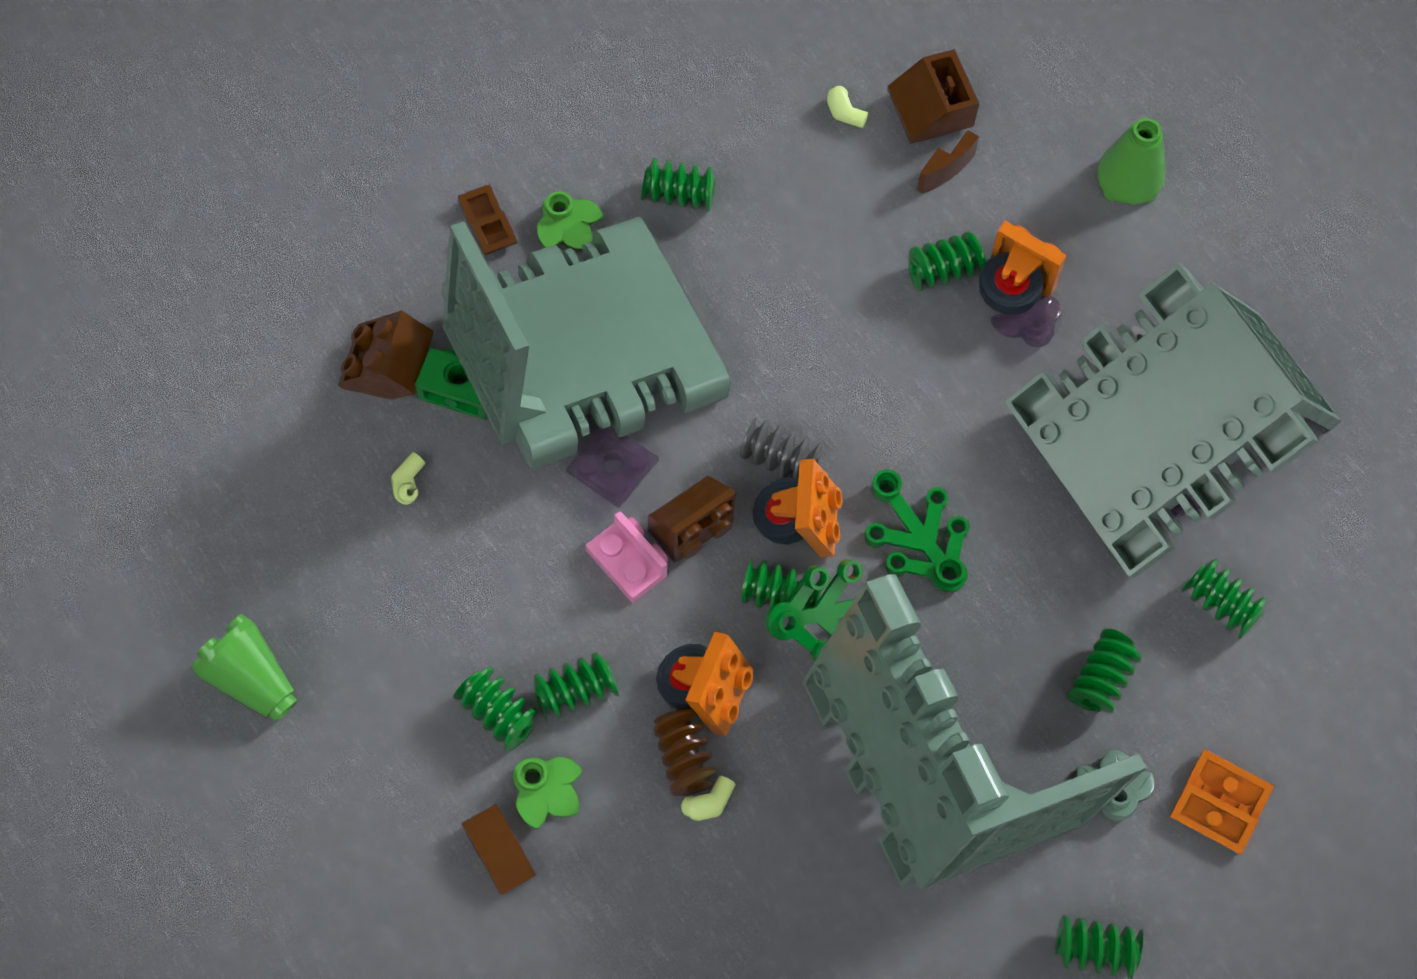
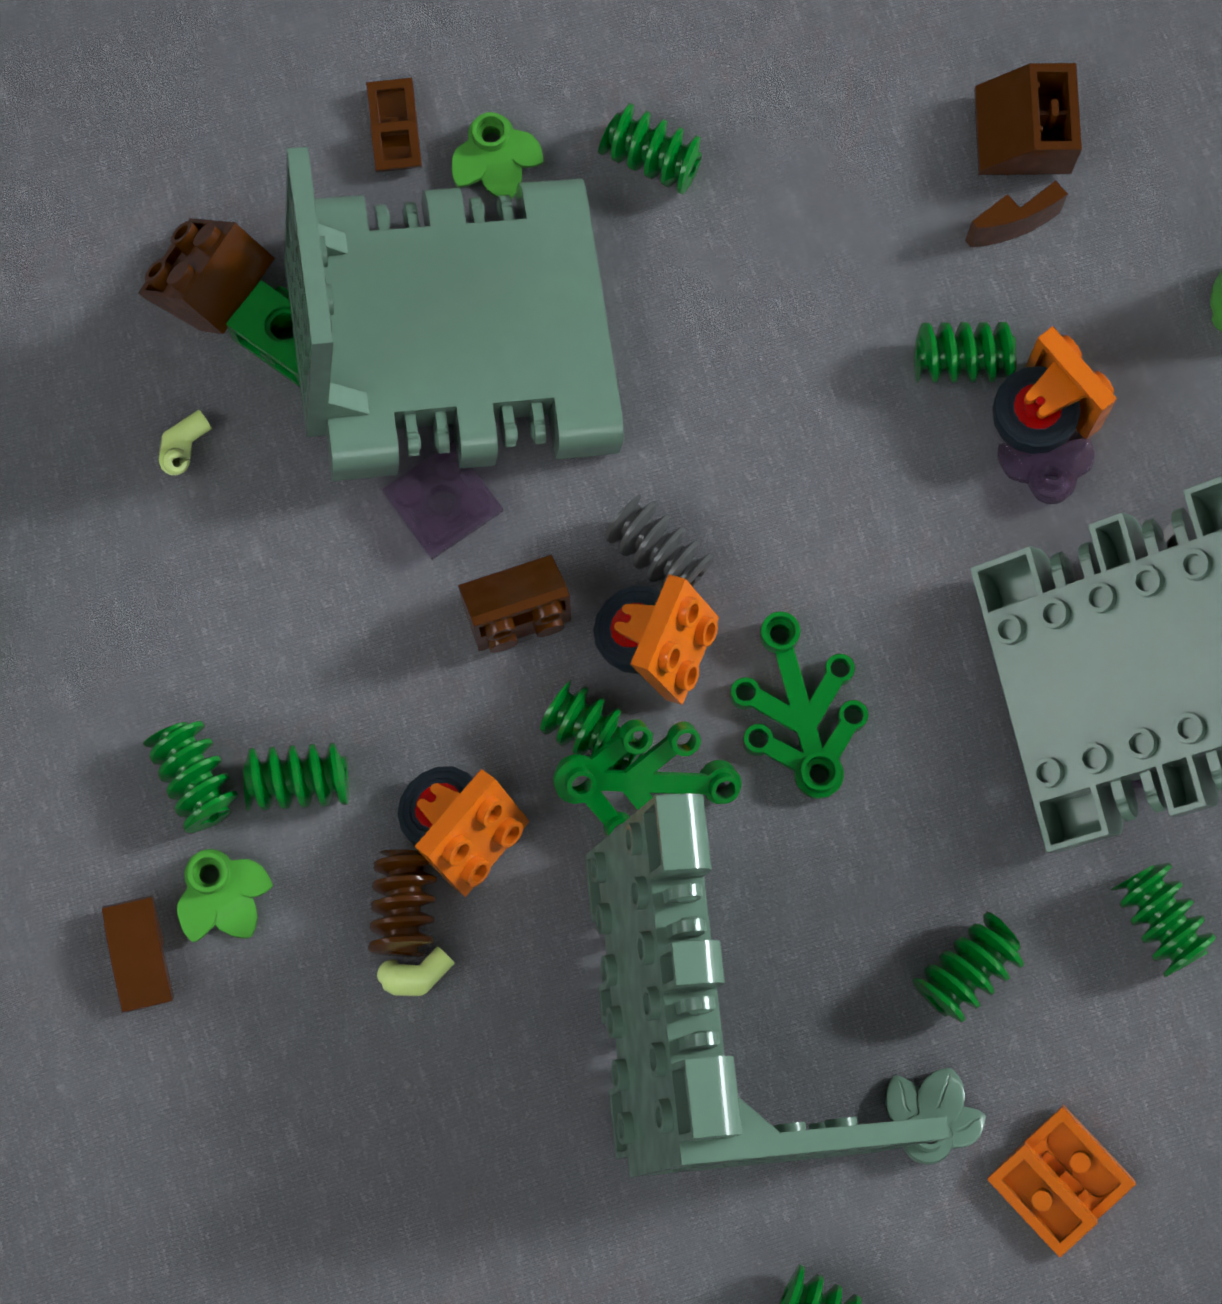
camera: 20 degrees right, 10 degrees up
(628, 557) = (420, 630): bright pink bracket -> none
(842, 109) = (904, 100): yellowish green arm -> none

